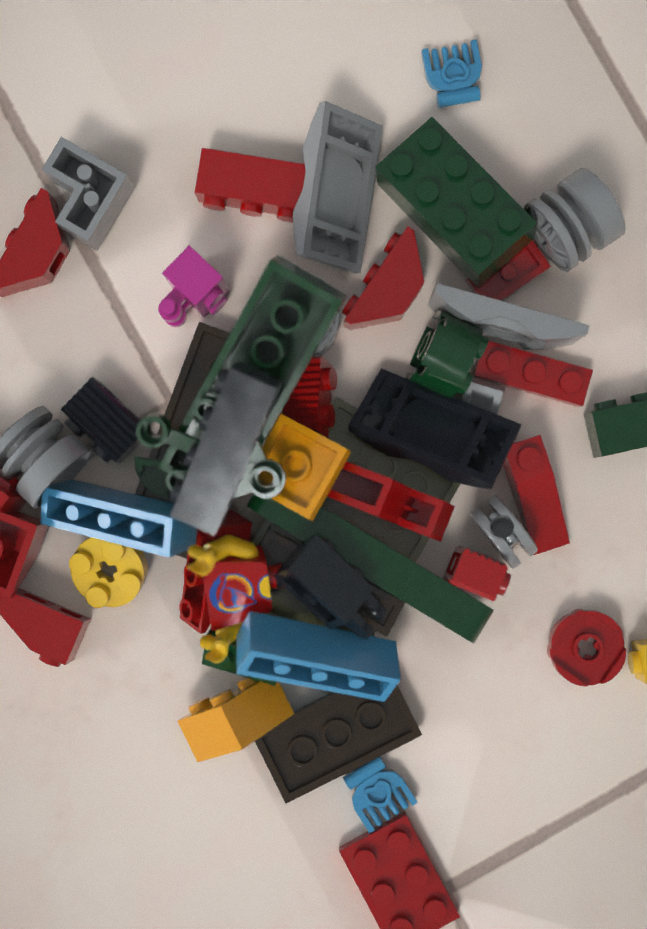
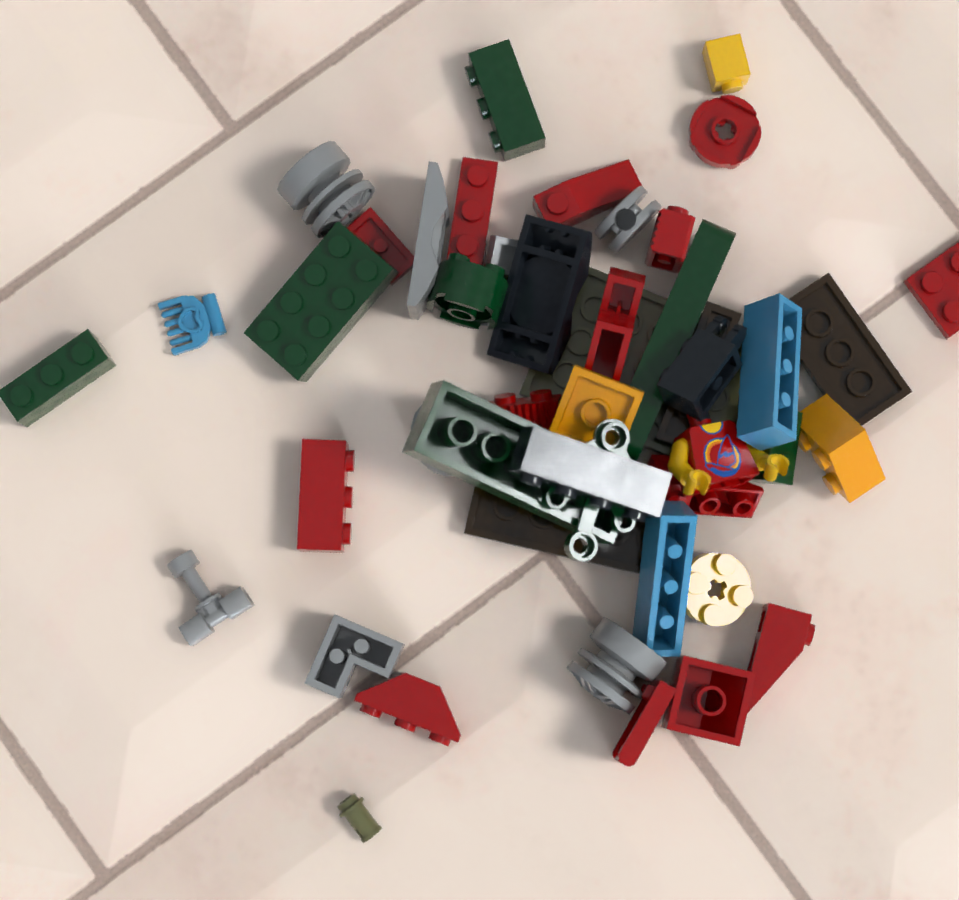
camera: 100 degrees left, 5 degrees down
(104, 420) = (572, 610): black brick -> none
(151, 476) = (619, 554): dark green tile -> none
(157, 61) = (211, 609): none -> light grey bar
(194, 285) = (431, 538): dark pink brick -> none
(337, 187) = (321, 414): light grey slope -> none
(374, 789) = (885, 310): dark azure piece -> none
(389, 286) = (405, 353): red slope -> none

